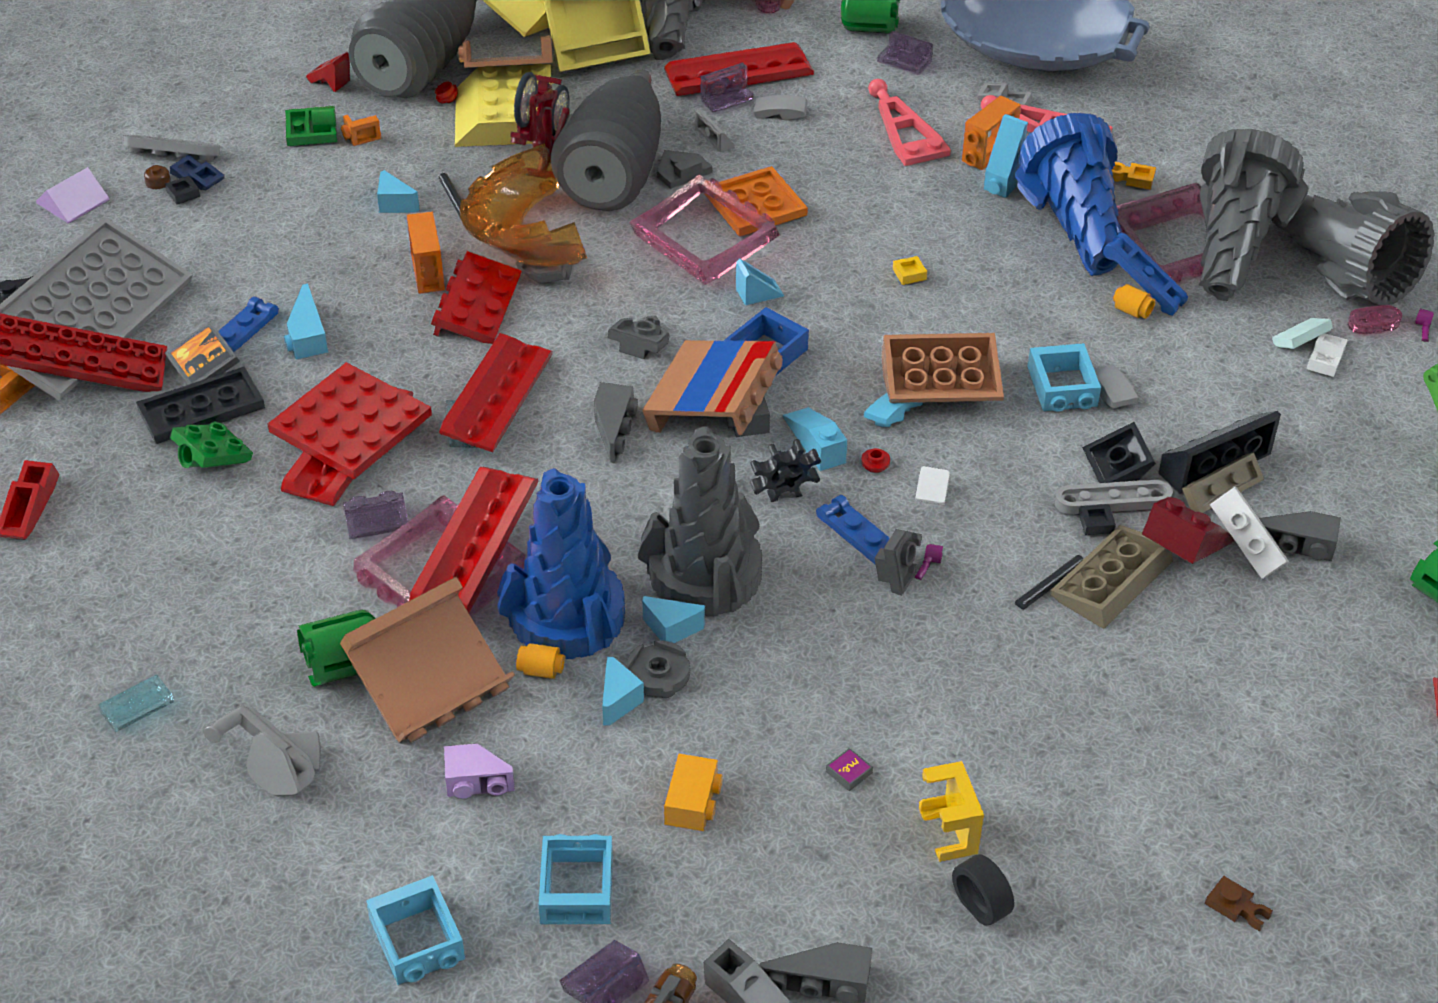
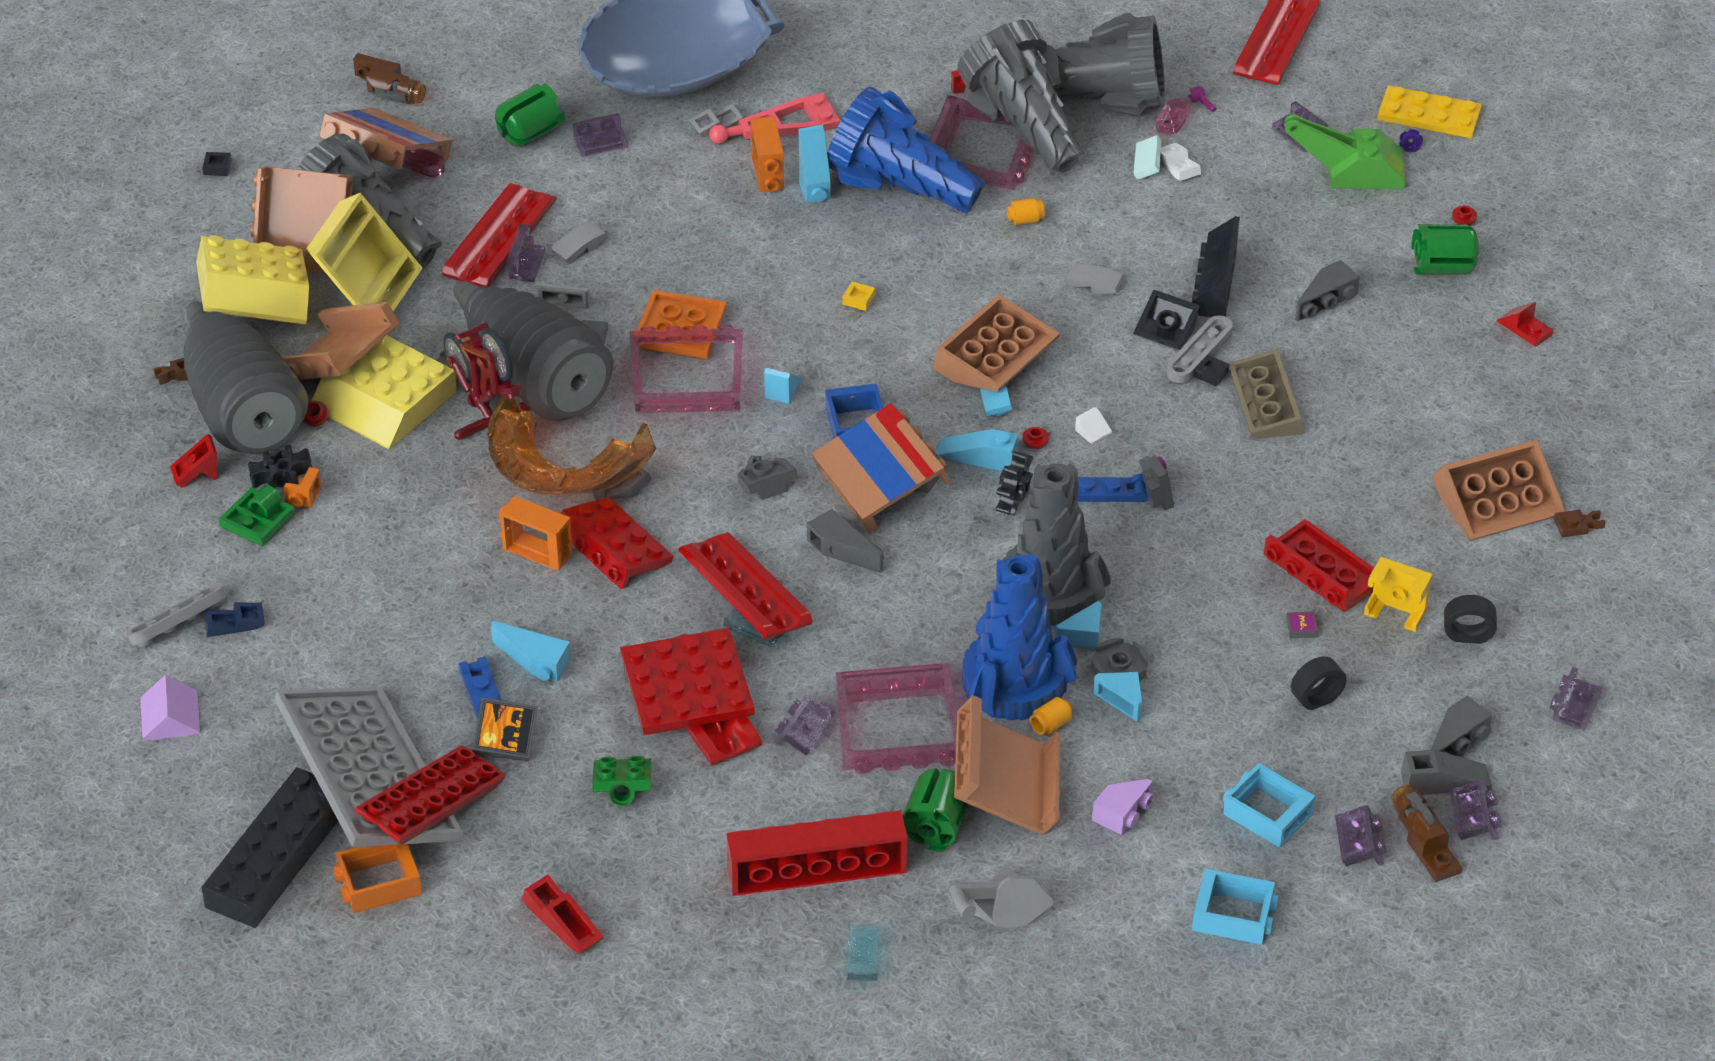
camera: 50 degrees left, 0 degrees up
(156, 177) = (208, 646): reddish brown piece -> none
(182, 190) = (250, 638): black plate -> none
(200, 403) = (557, 761): black plate -> none
(215, 602) = (816, 853): none -> red brick
(367, 105) = (280, 467): none -> black gear
(395, 195) = (422, 515): medium azure slope -> none
(451, 191) = (462, 485): black bar -> none
(476, 533) = (907, 677): red plate -> none
(691, 792) = (1250, 708): light orange brick -> none
(774, 807) = (1313, 672): none -> black tyre
(910, 152) = (721, 210): coral plate -> none
(940, 731) = (1321, 564): none -> red bracket
(1048, 583) = (1239, 428): black bar -> none
(1063, 358) = (1038, 300): medium azure window -> none
(1146, 273) = (1013, 183): blue plate -> none
(1184, 530) = (1280, 333): dark red slope -> none
(1196, 812) = (1499, 490): none -> nougat slope
(1239, 473) = (1245, 291): dark tan plate -> none
(1249, 533) = (1309, 308): white plate -> none

